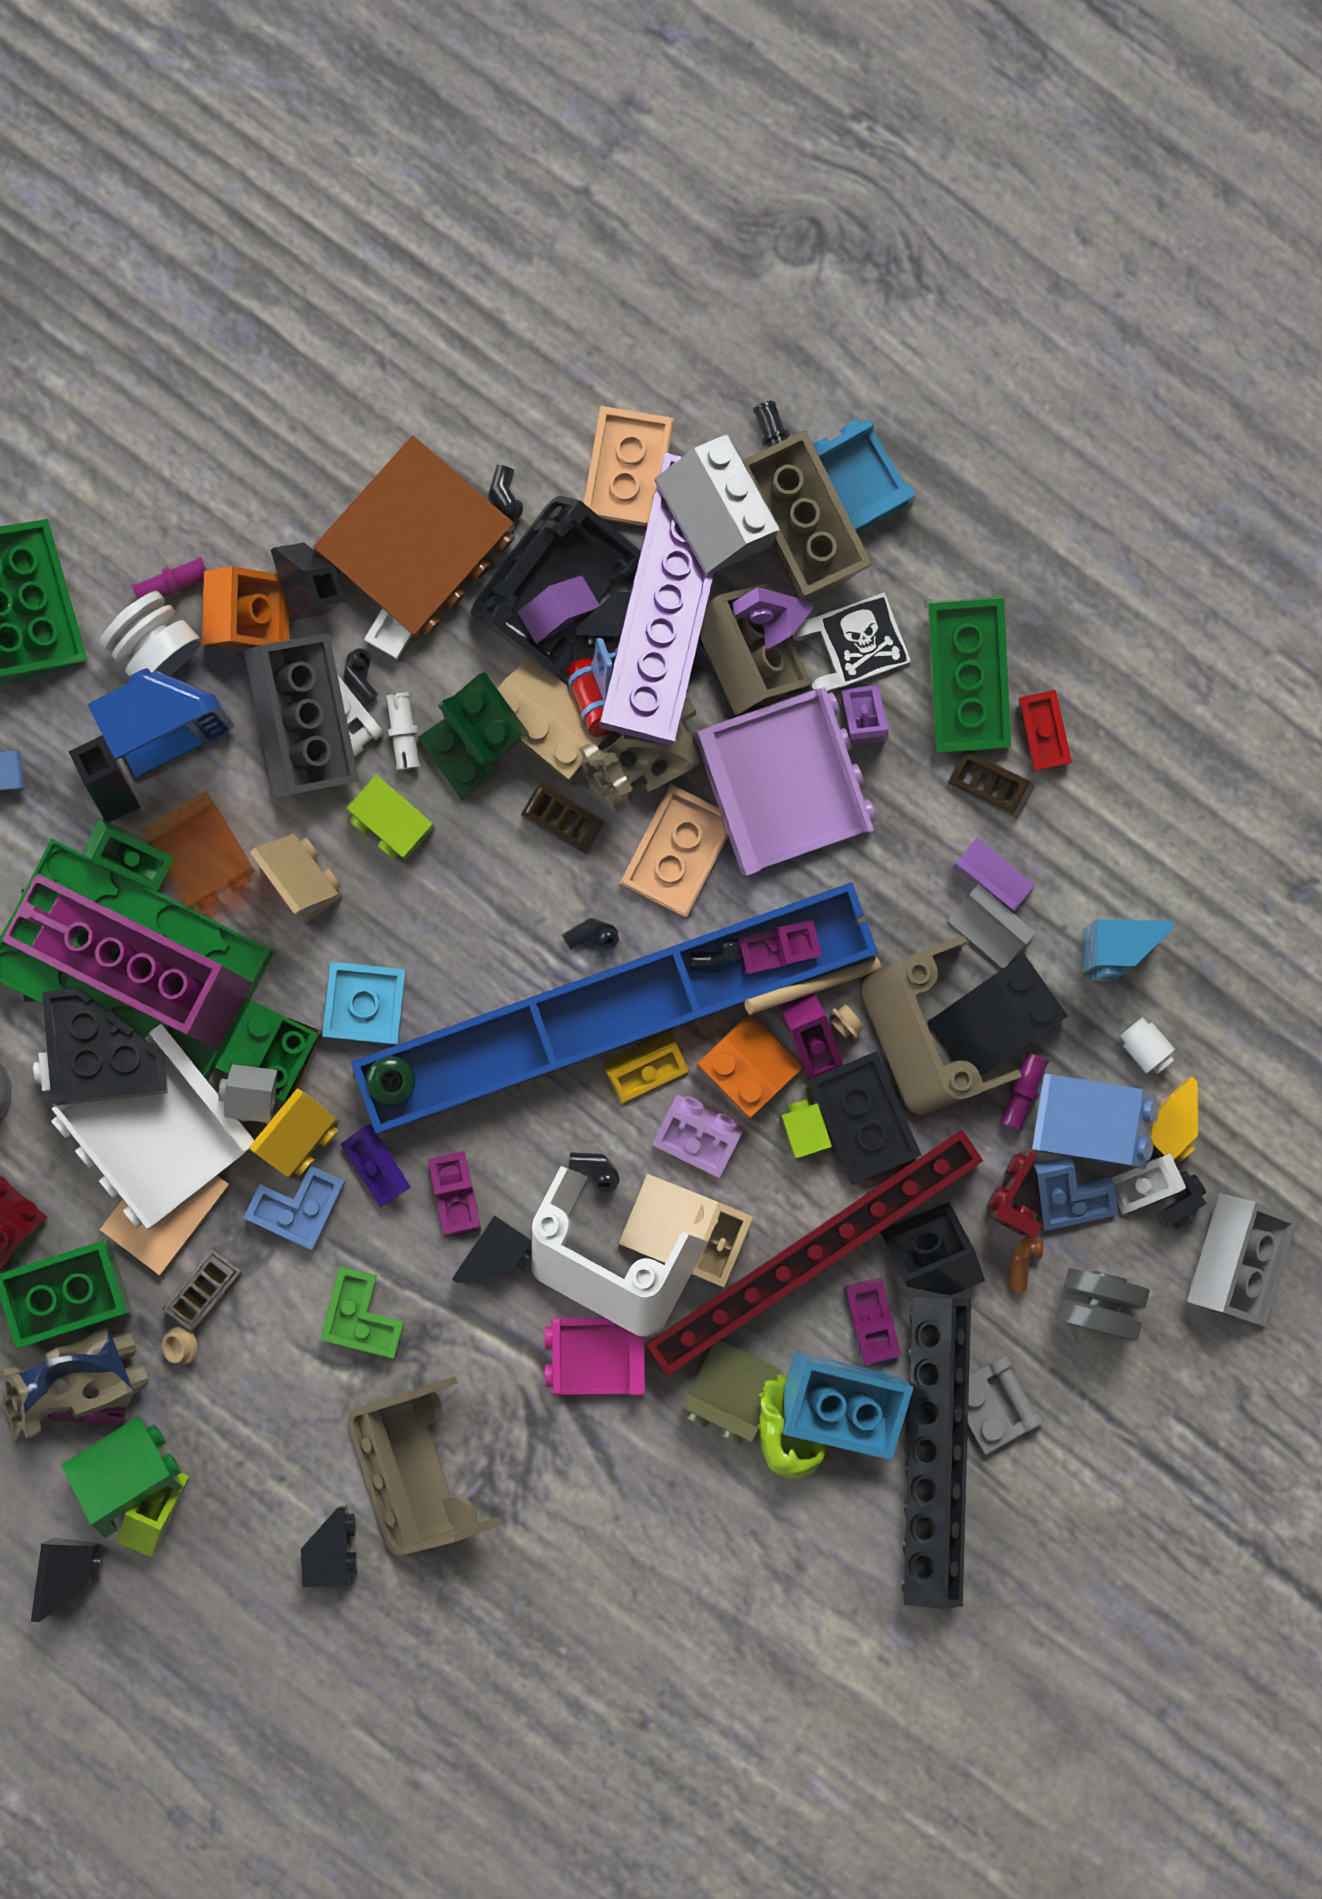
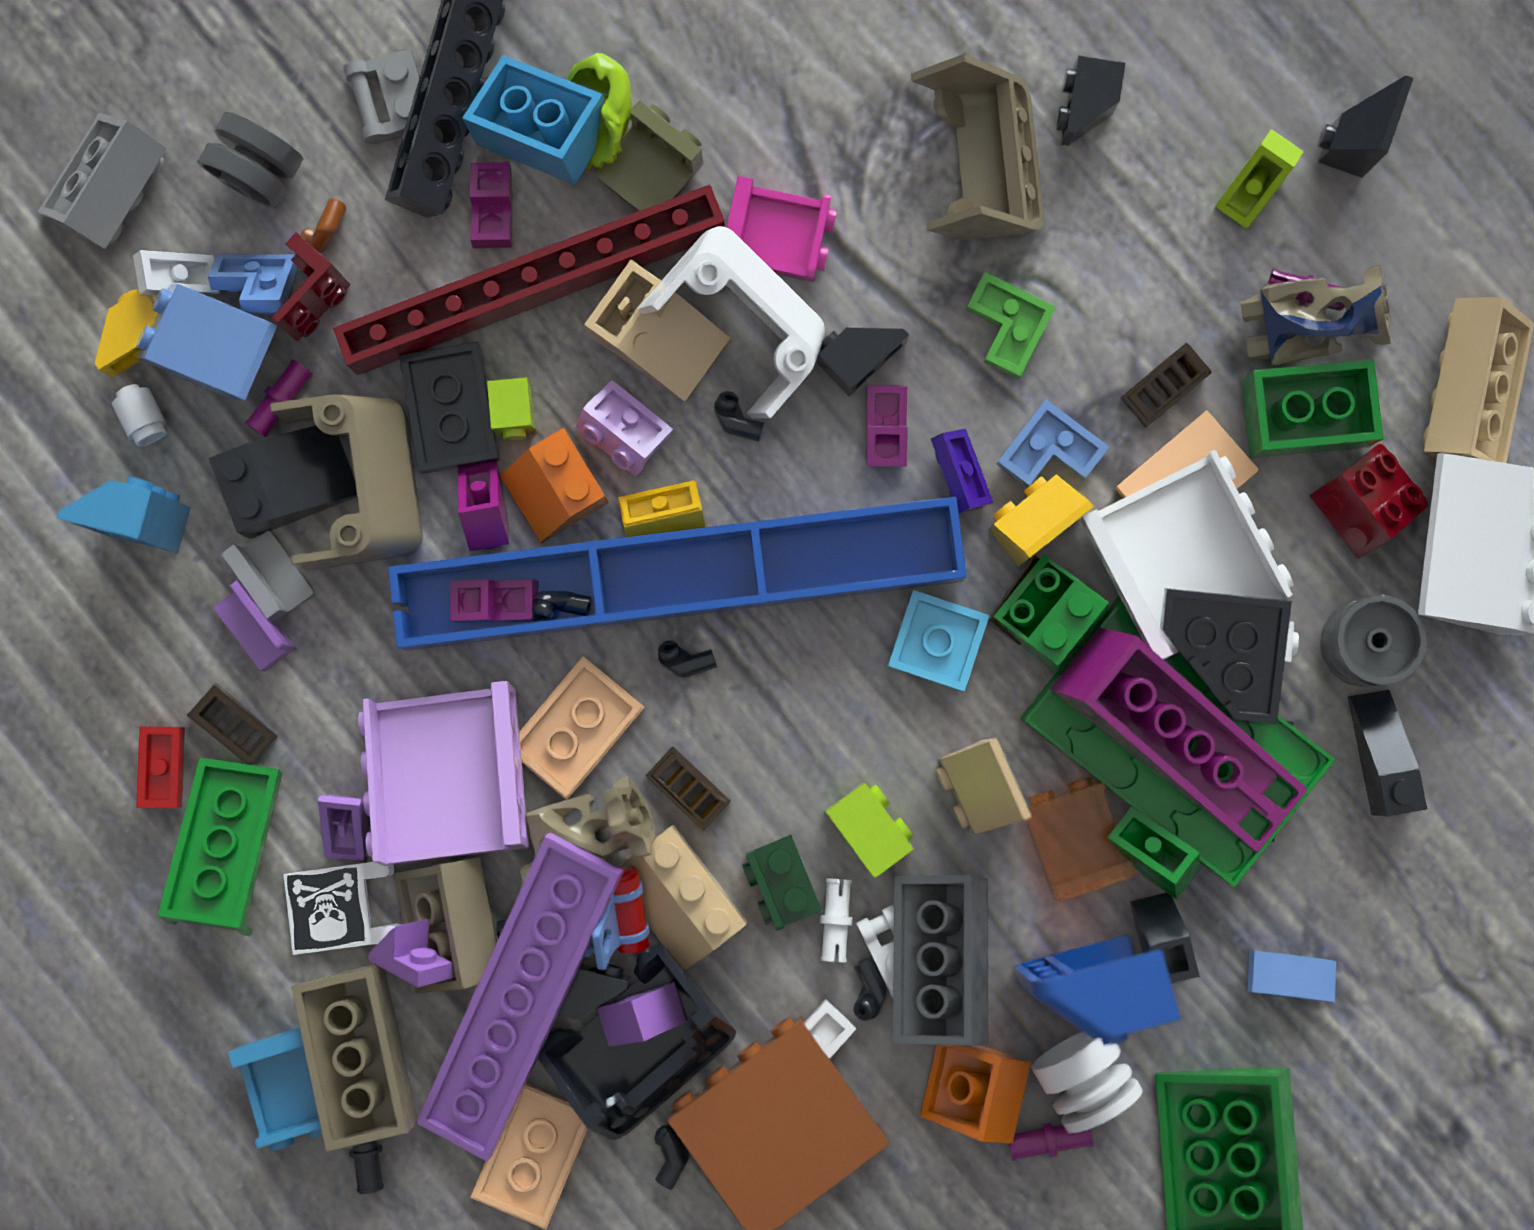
camera: 165 degrees left, 0 degrees up
(121, 1473) = (1286, 214): green panel -> none
(179, 1346) = (1200, 333): tan plate -> none
(249, 1093) = (1080, 565): light grey brick -> none
(307, 581) = (903, 1107): black slope -> none
(400, 1091) = (930, 536): dark green head -> none
(483, 720) = (747, 909): dark green bracket -> none
(717, 505) = (441, 1089): light grey slope -> none
(812, 985) = (482, 547): tan bar -> none
(846, 1022) = (442, 508): tan plate -> none
(934, 1252) = (408, 253): black slope -> none
(1181, 1211) = (148, 238): black bracket -> none

